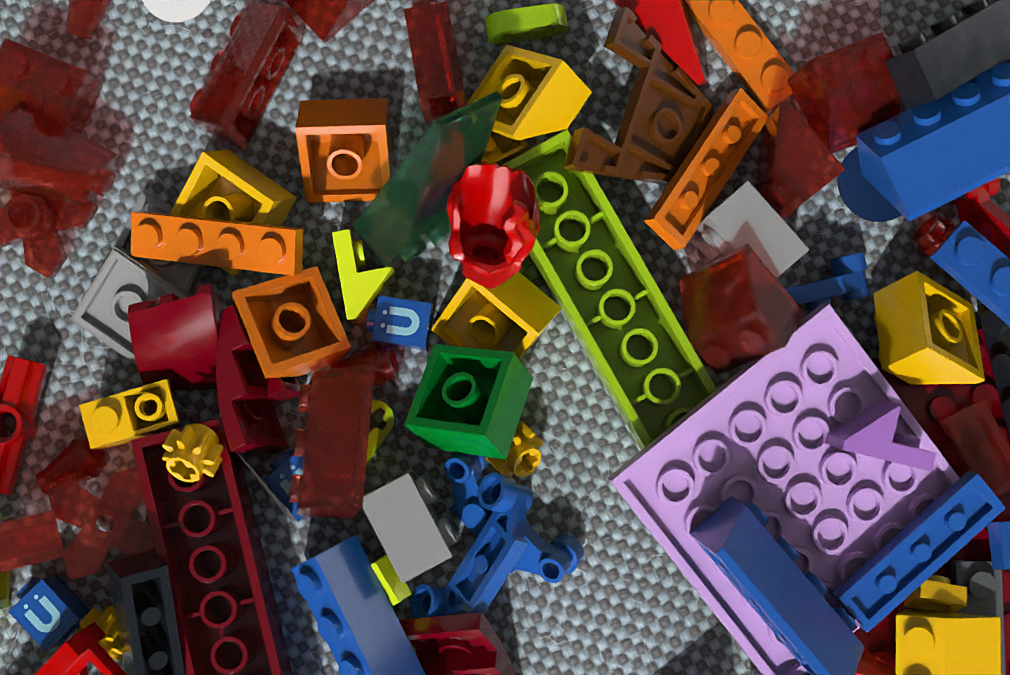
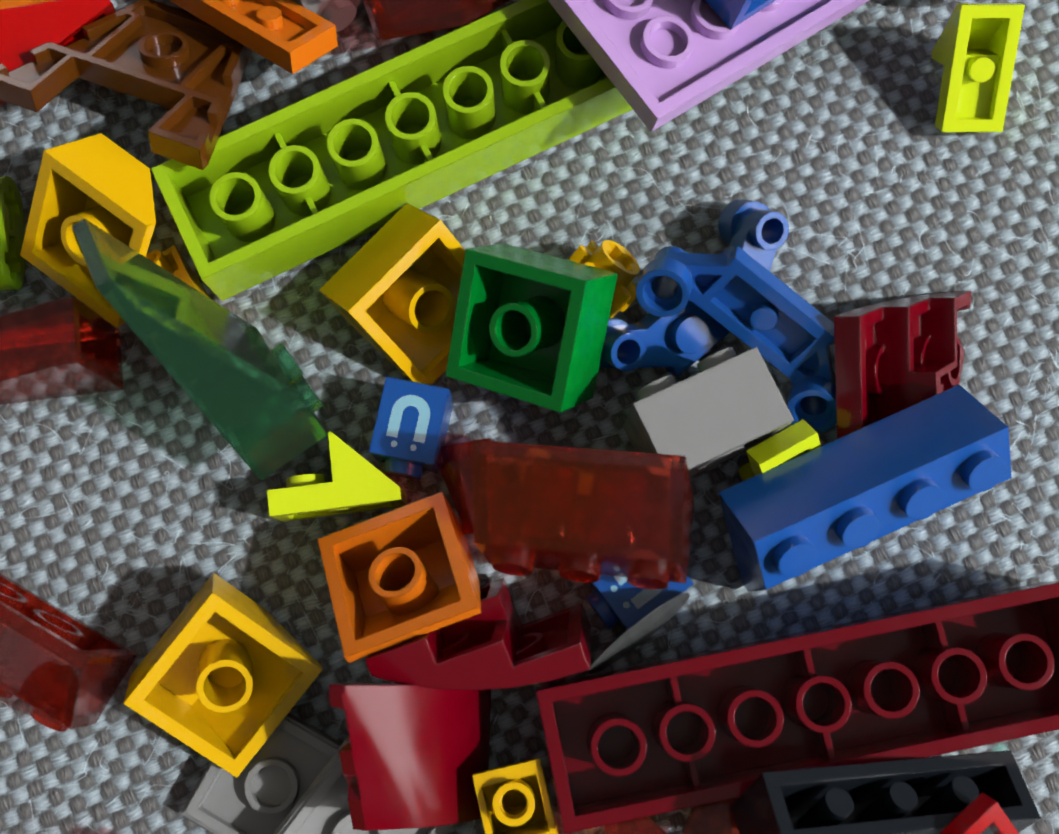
camera: 85 degrees left, 5 degrees down
(192, 452) = (590, 729): yellow gear -> none
(217, 242) = (267, 690): orange plate -> none
(344, 148) = (149, 496): orange slope -> none
(492, 221) = (273, 264): red hair -> none

